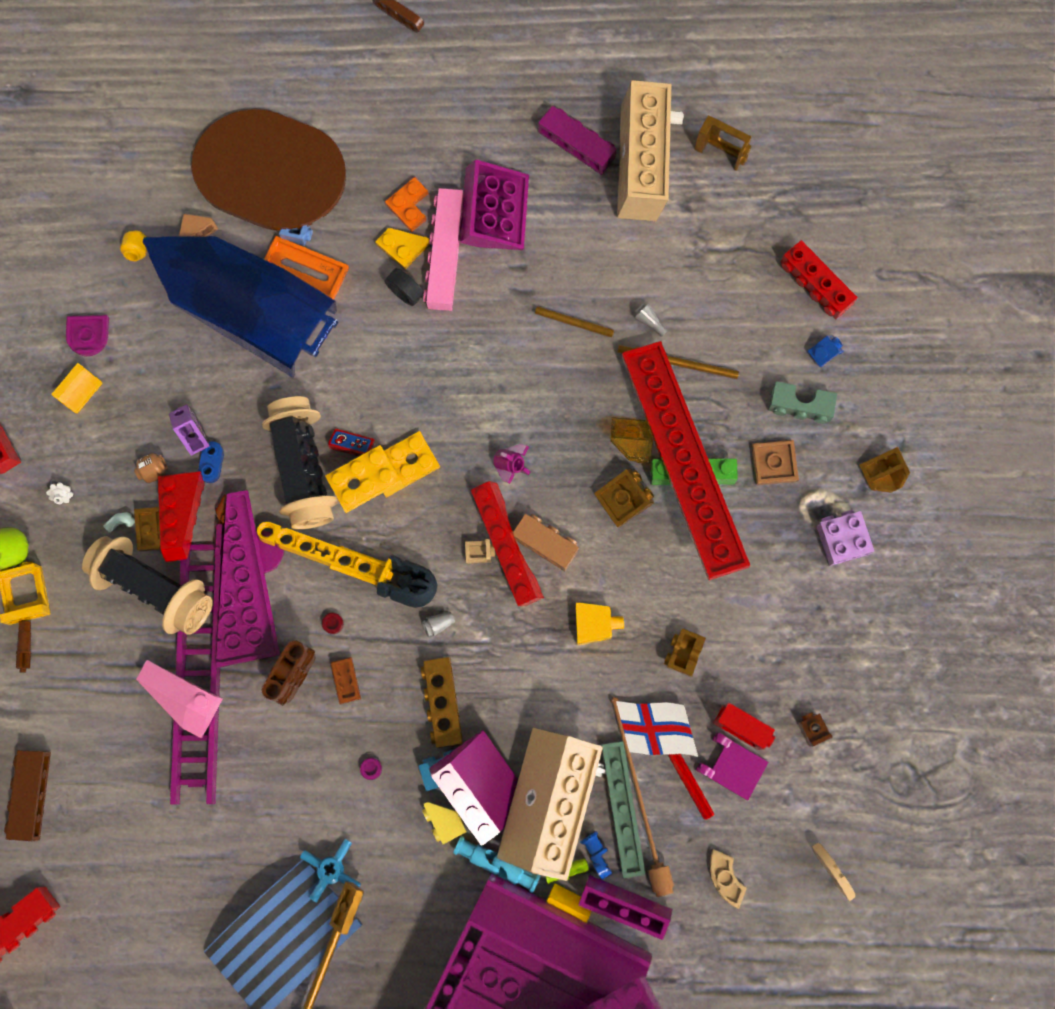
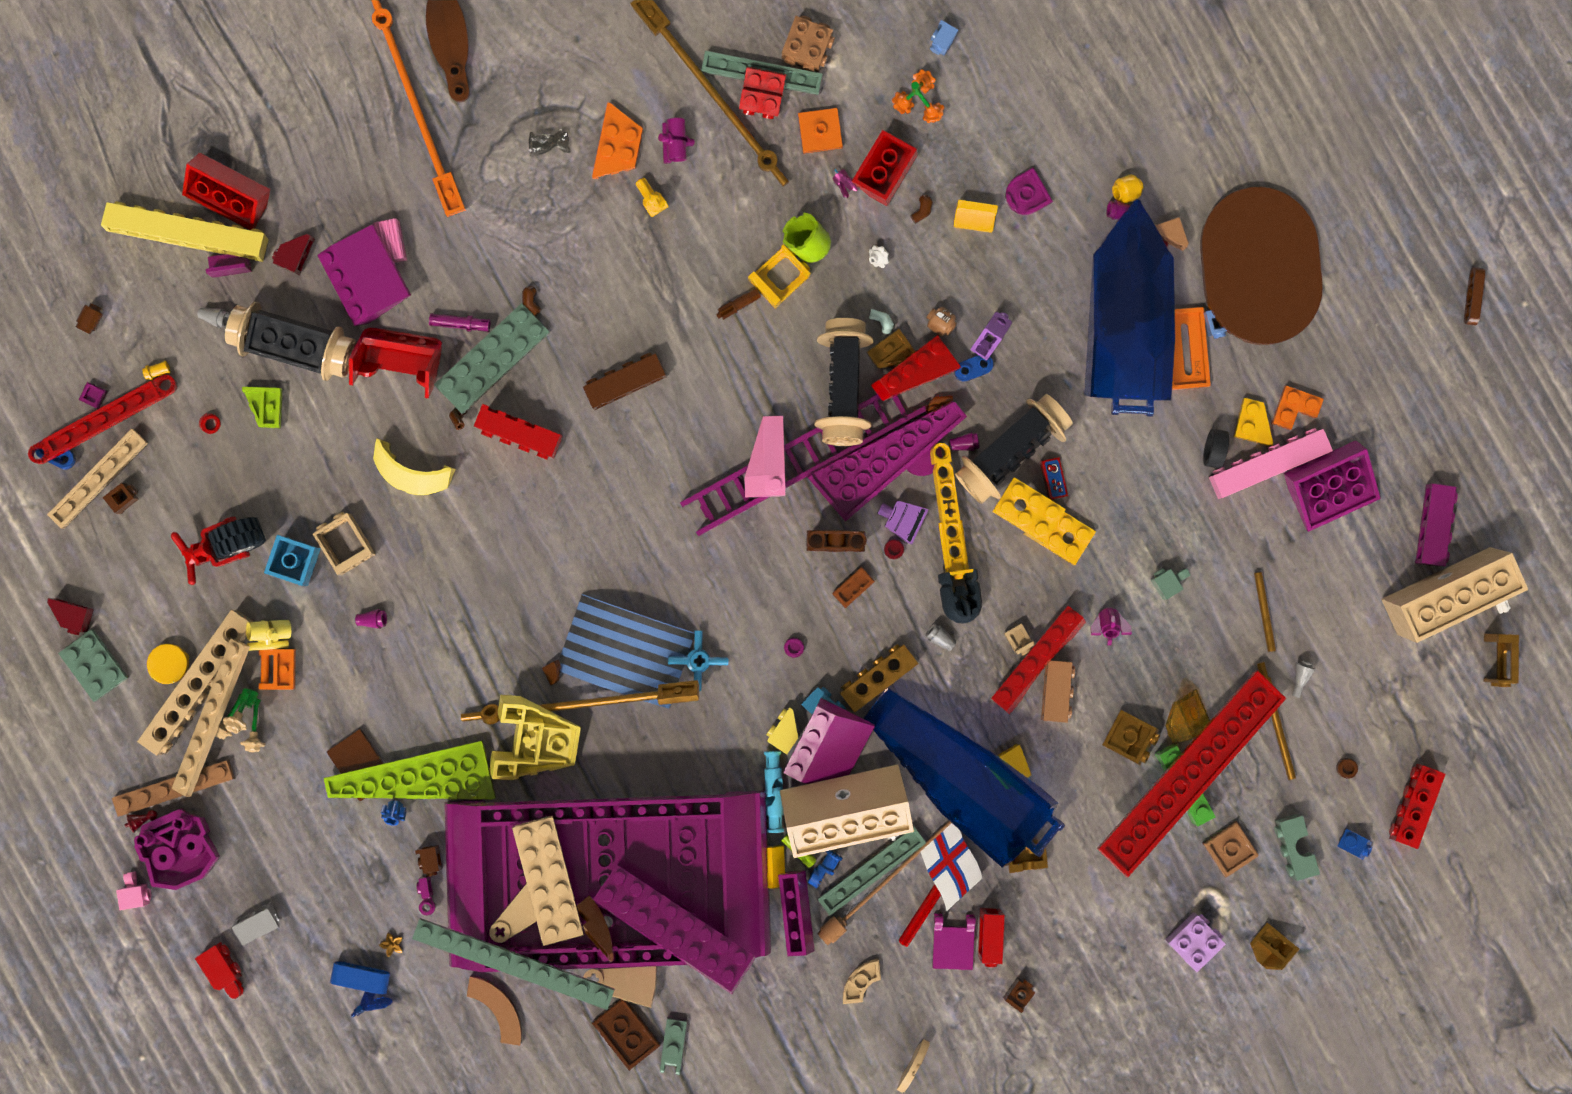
camera: 50 degrees right, 10 degrees up
(45, 430) = (925, 209): none -> reddish brown arm
(145, 265) = (1116, 209): none -> magenta cone
(272, 505) = (966, 442): none -> magenta cone
(309, 599) = (903, 519): none -> medium lavender torso
(500, 391) = (1169, 583): none -> sand green brick
(582, 669) = (966, 781): none -> clear blue windscreen
(753, 323) = (1347, 768): none -> reddish brown tile

